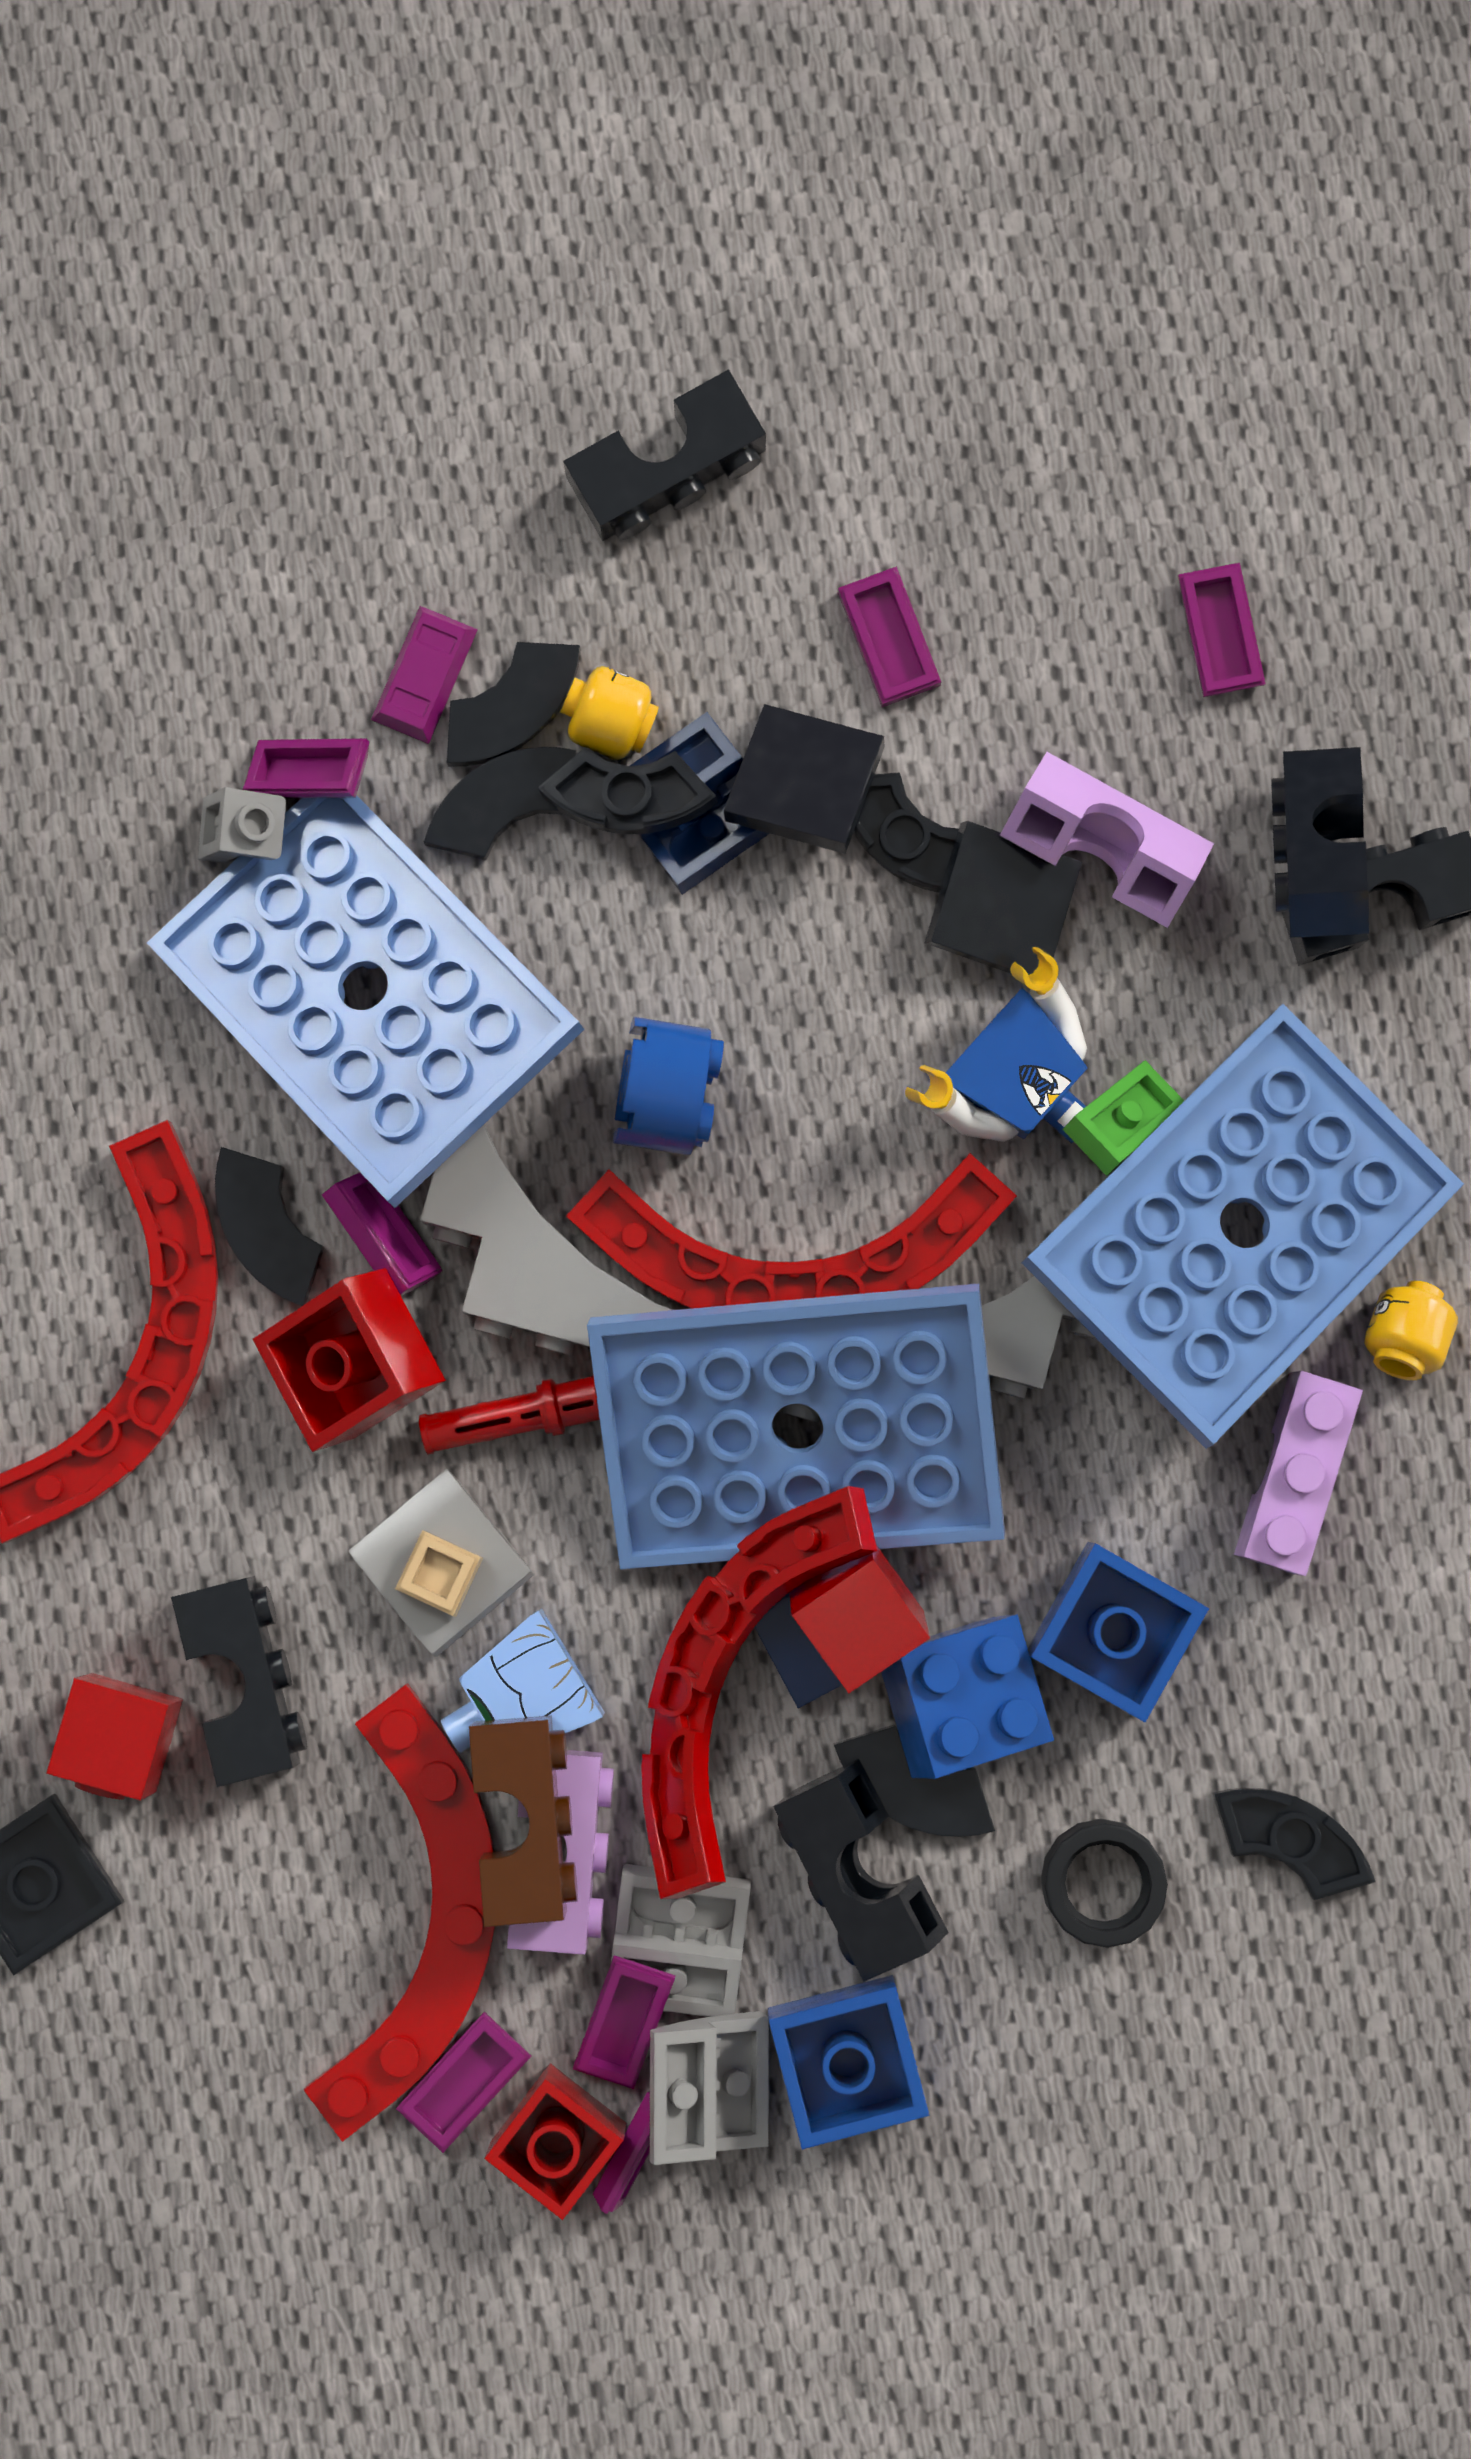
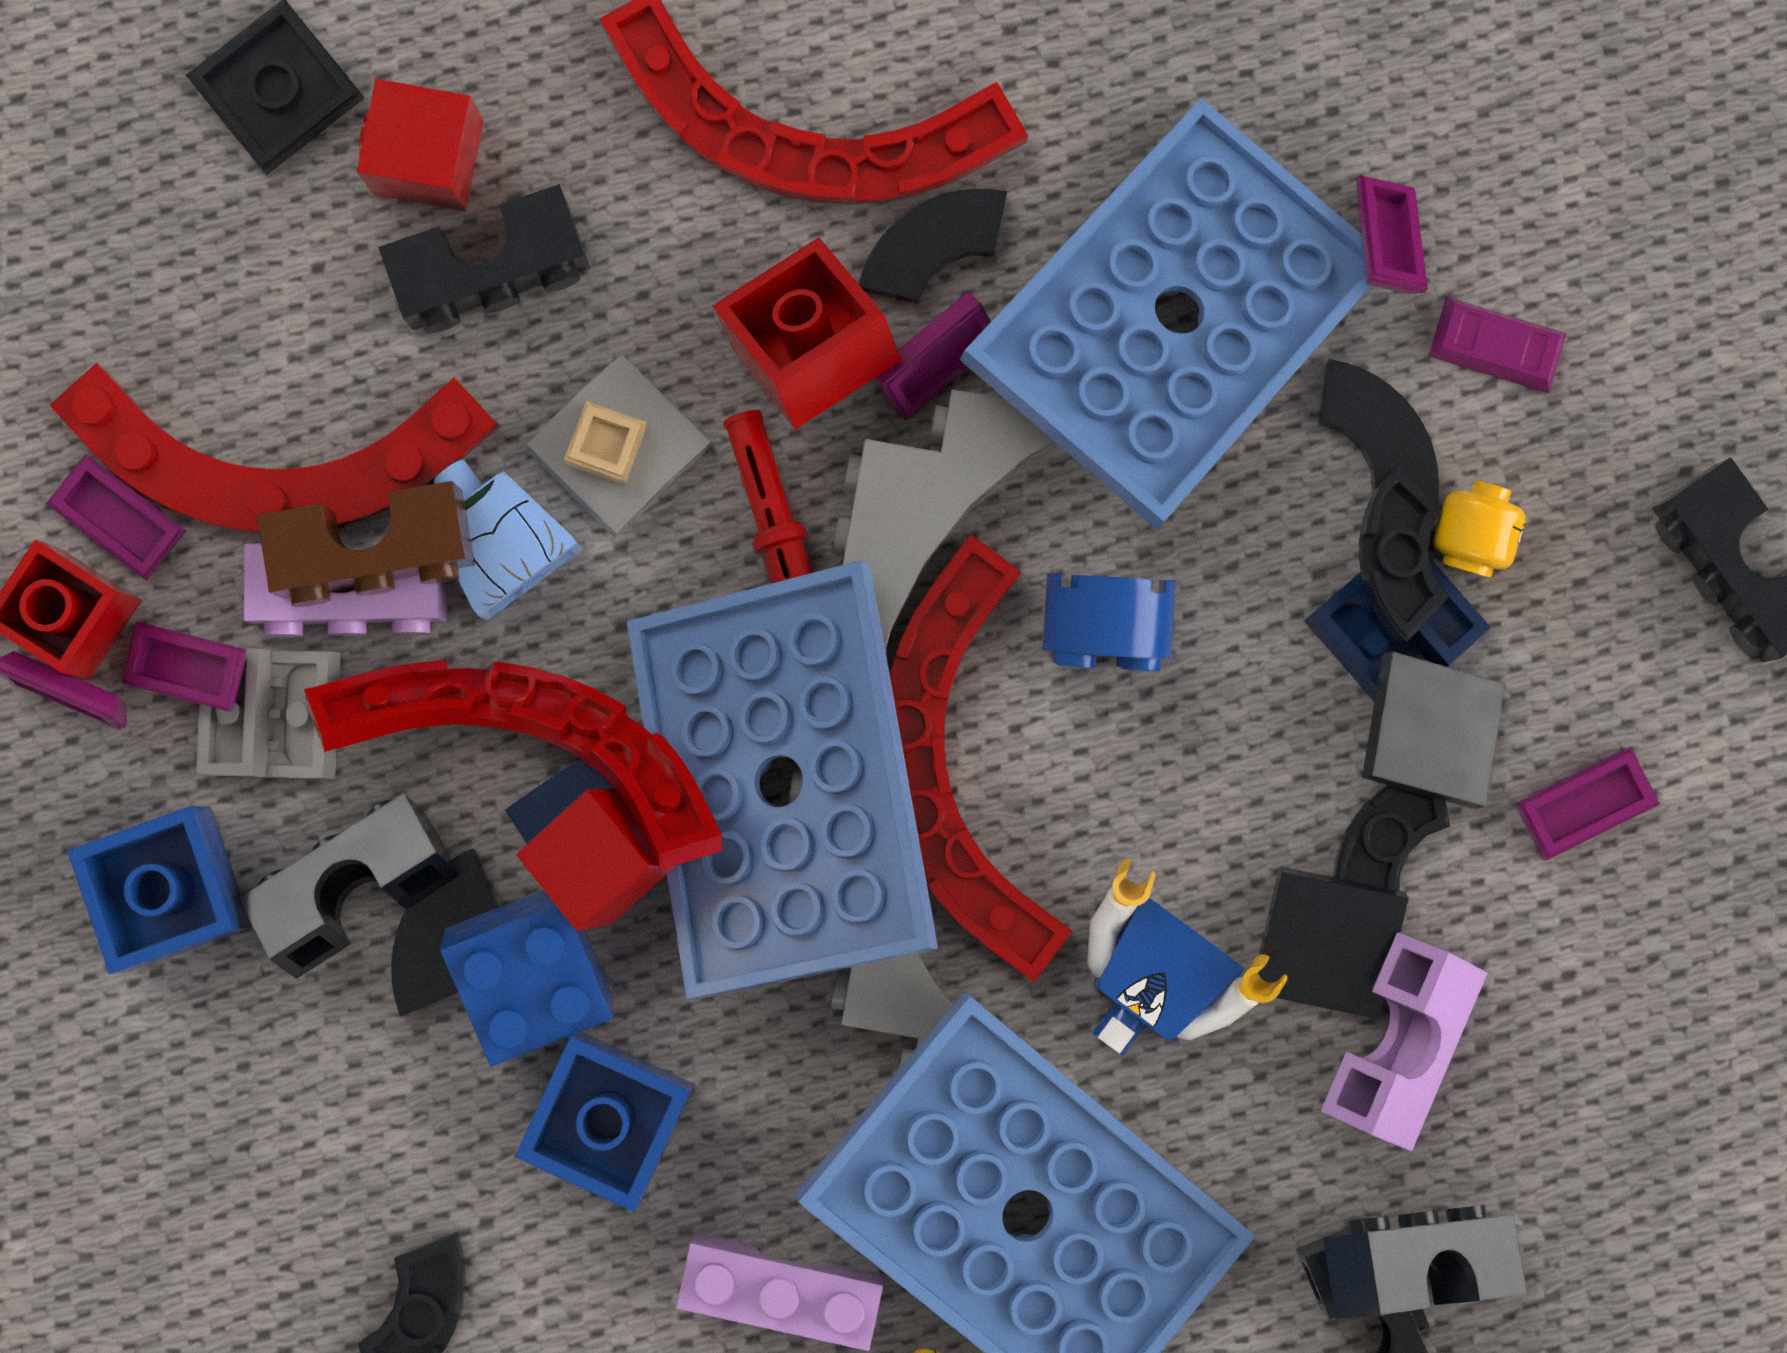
camera: 80 degrees right, 0 degrees up
(241, 825) = (1327, 178): light grey bracket -> none
(515, 707) = (1475, 437): black tile -> none
(709, 2087) = (124, 754): light grey slope -> none
(1123, 1117) = (1123, 1082): bright green plate -> none
(1152, 1893) = (309, 1144): black tyre -> none
(1221, 629) = (1631, 1141): magenta tile -> none

